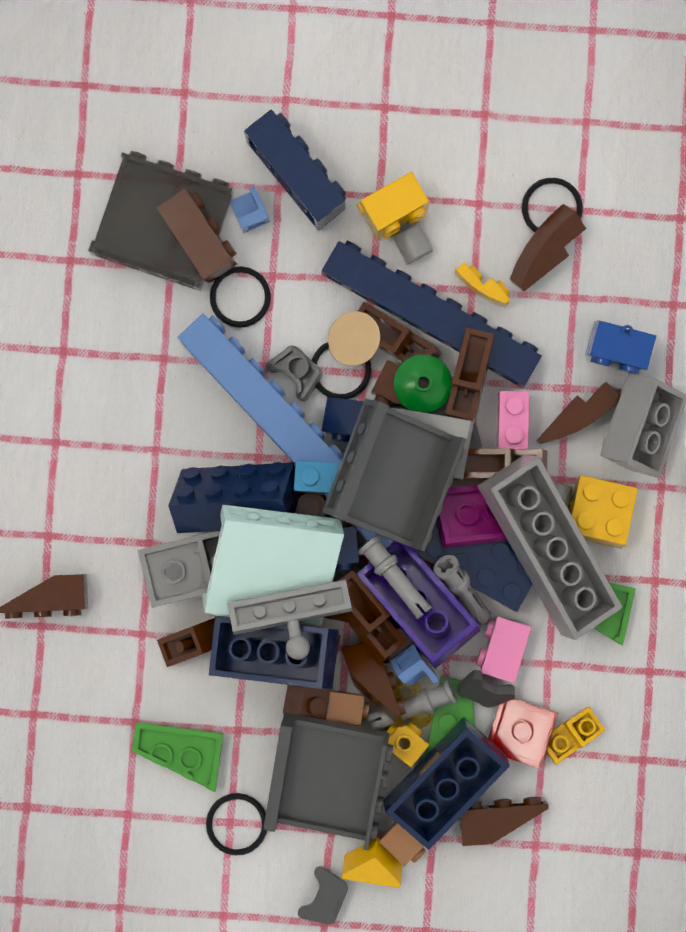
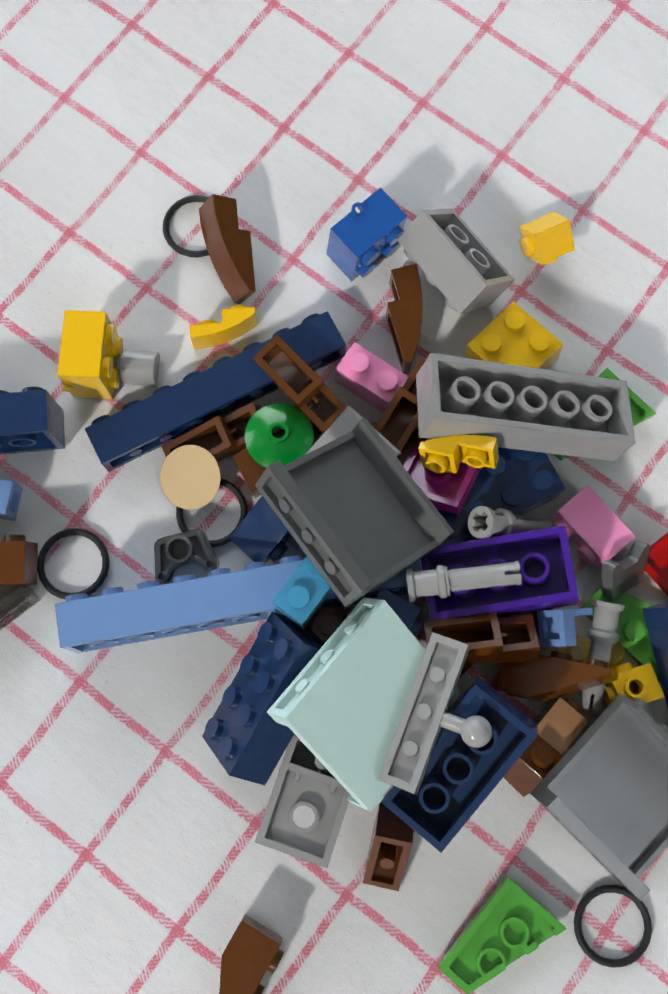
camera: 60 degrees left, 10 degrees down
(482, 514) = (447, 452): none -> yellow slope

